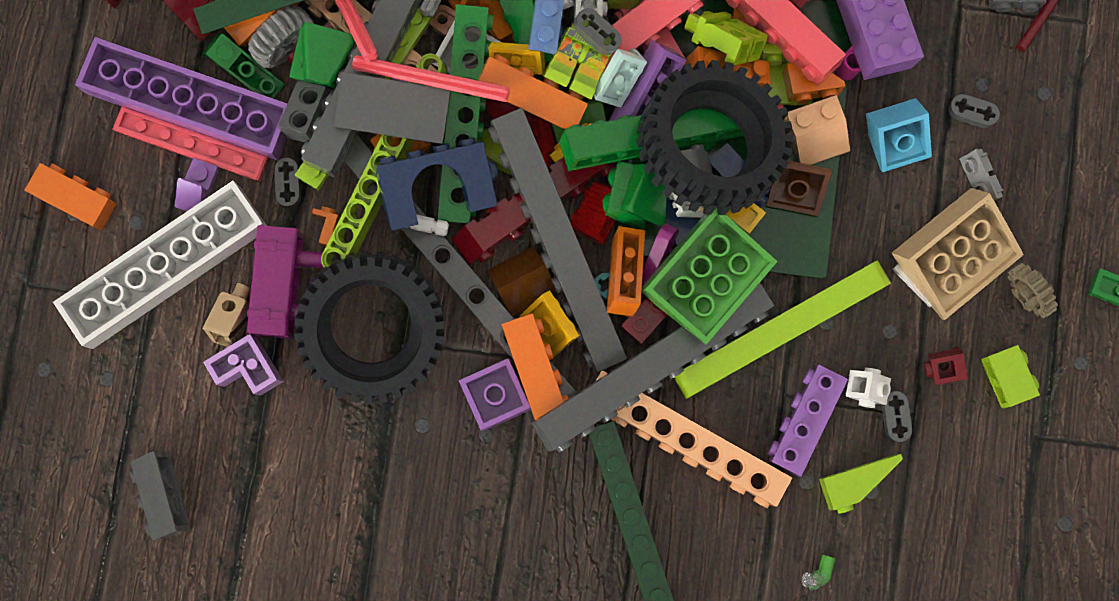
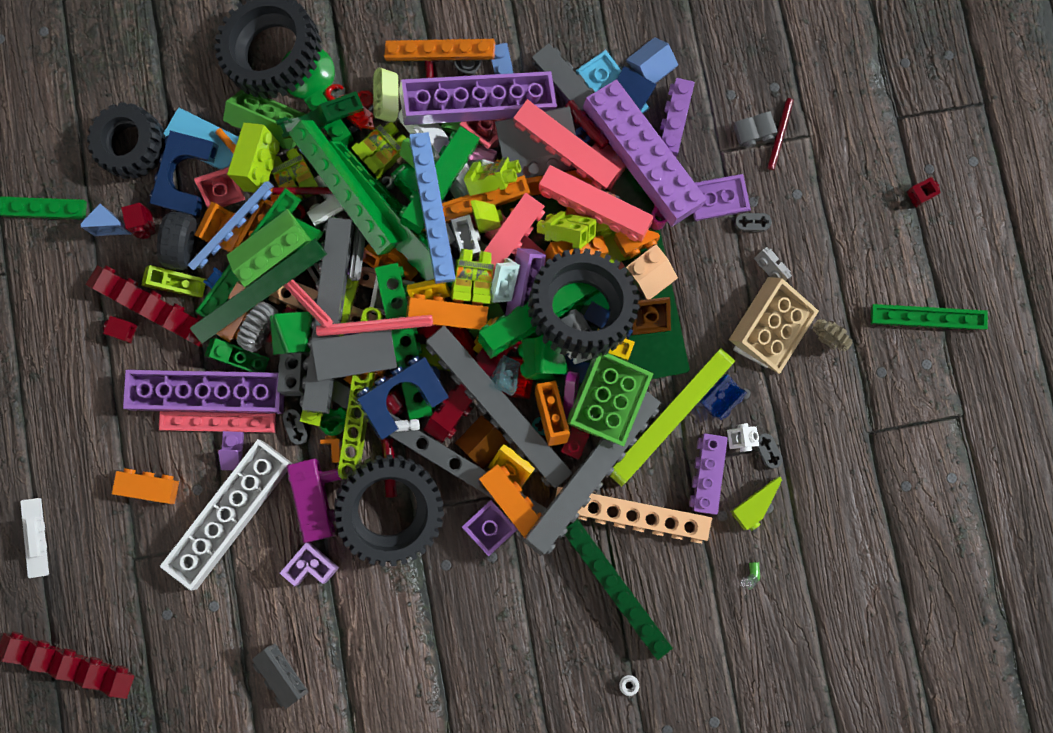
camera: 20 degrees left, 0 degrees up
(228, 316) = (286, 542): tan torso -> none
(337, 191) = (334, 422): none -> green hair
(385, 295) = (390, 485): none -> dark red pin
(426, 190) = (395, 402): none -> dark red head
(582, 201) = (506, 375): none -> clear light blue slope
(597, 31) = (478, 252): dark grey beam -> none
(858, 326) = (723, 397): none -> clear blue bracket
(899, 134) = (707, 255): medium azure slope -> none
(946, 66) = (724, 197): none -> medium lavender tile
(954, 370) = (797, 405): dark red brick -> none
(1011, 376) = (837, 398): lime brick -> none

